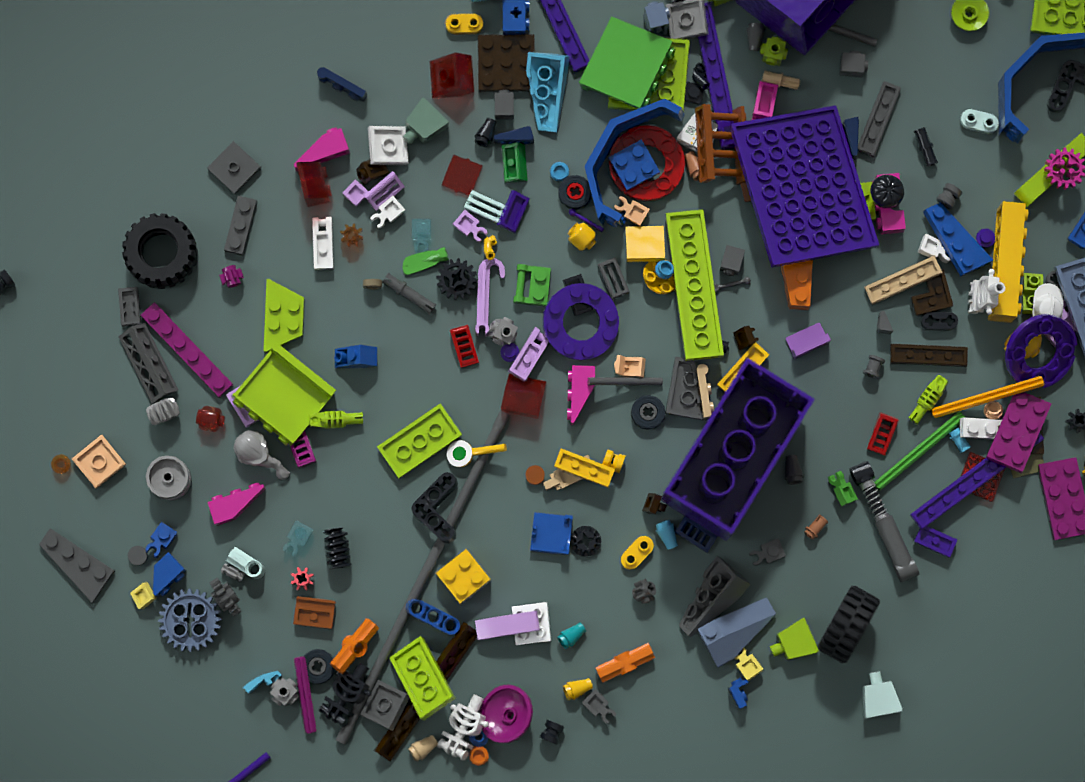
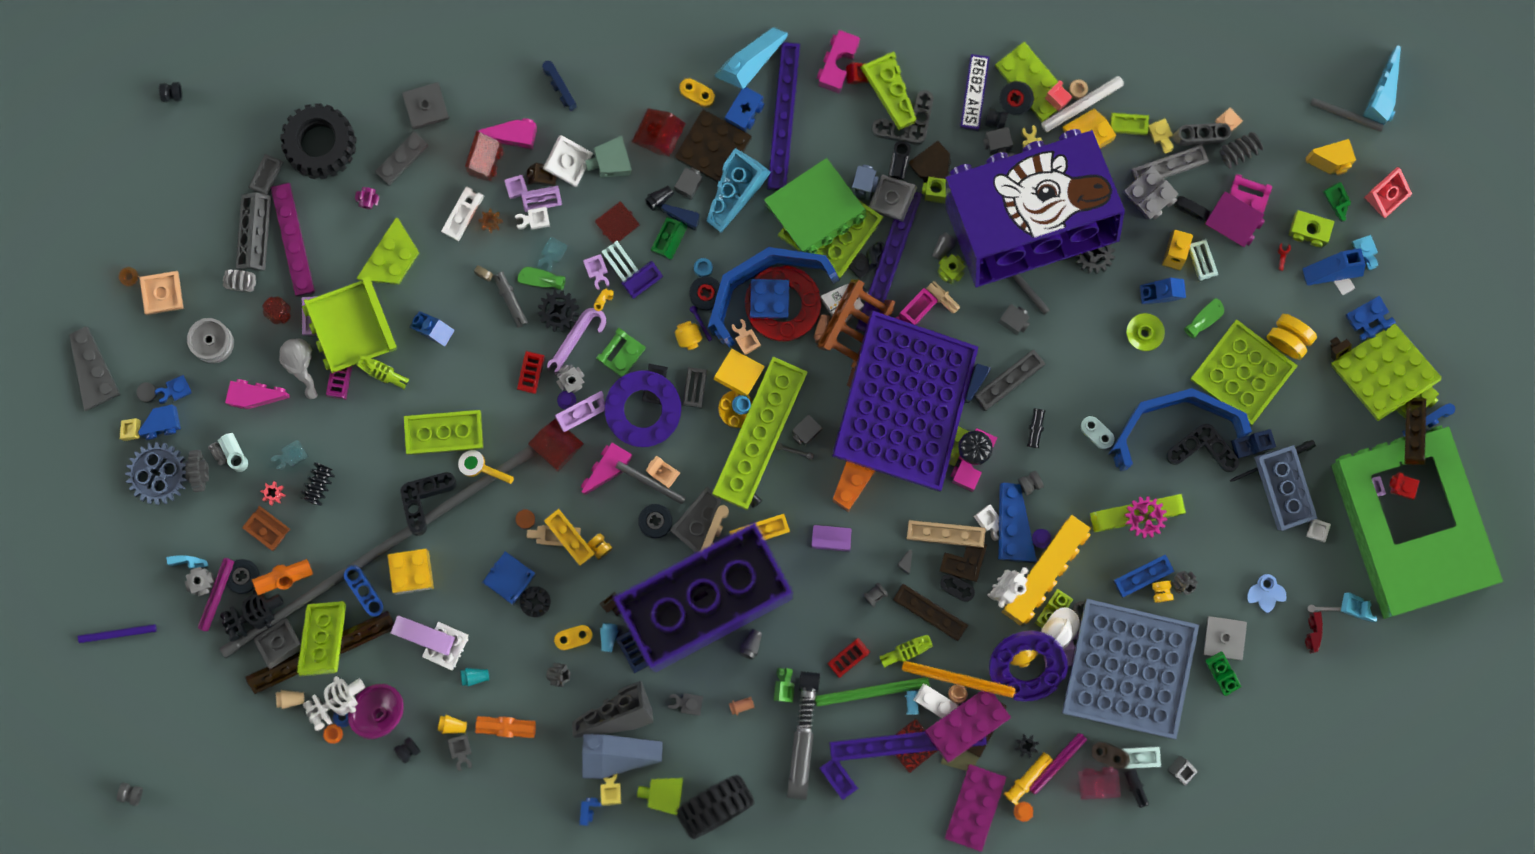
camera: 30 degrees right, 0 degrees up
(745, 337) = (777, 504): dark brown tile -> none

